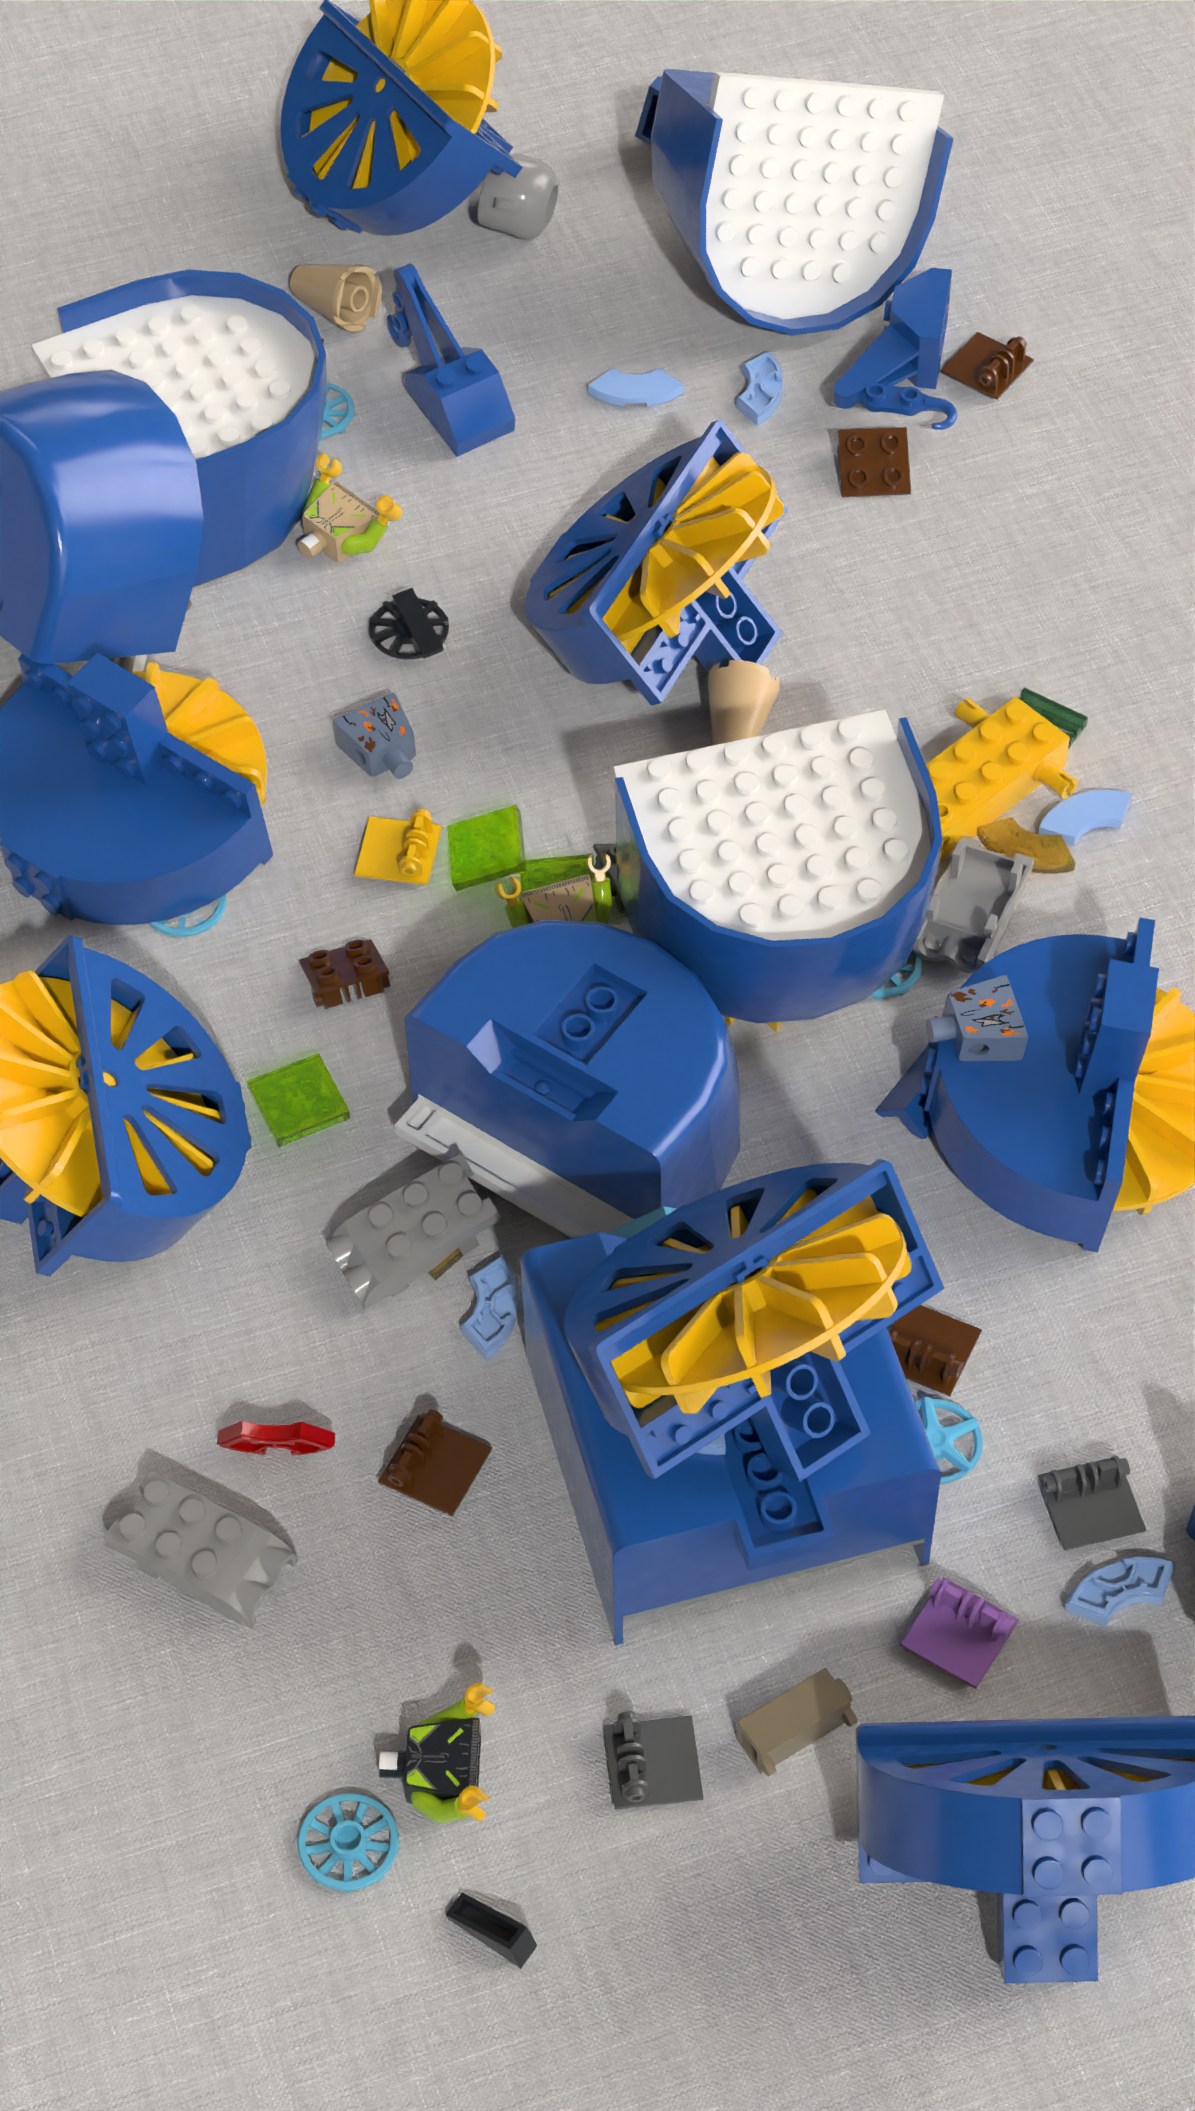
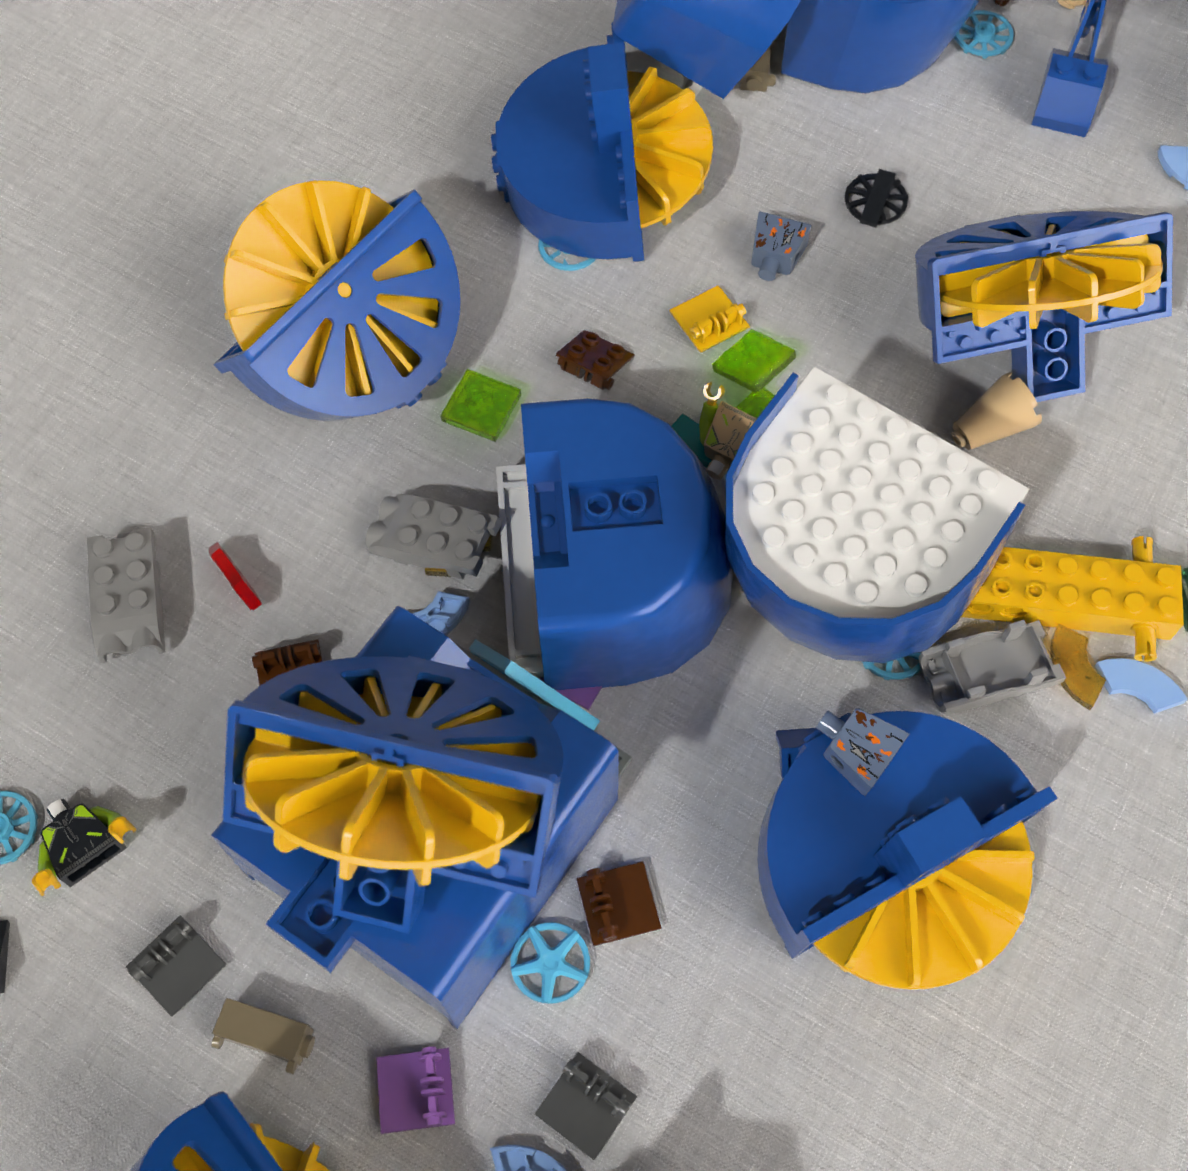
camera: 50 degrees right, 10 degrees up
(340, 520) = (912, 102): torso -> none

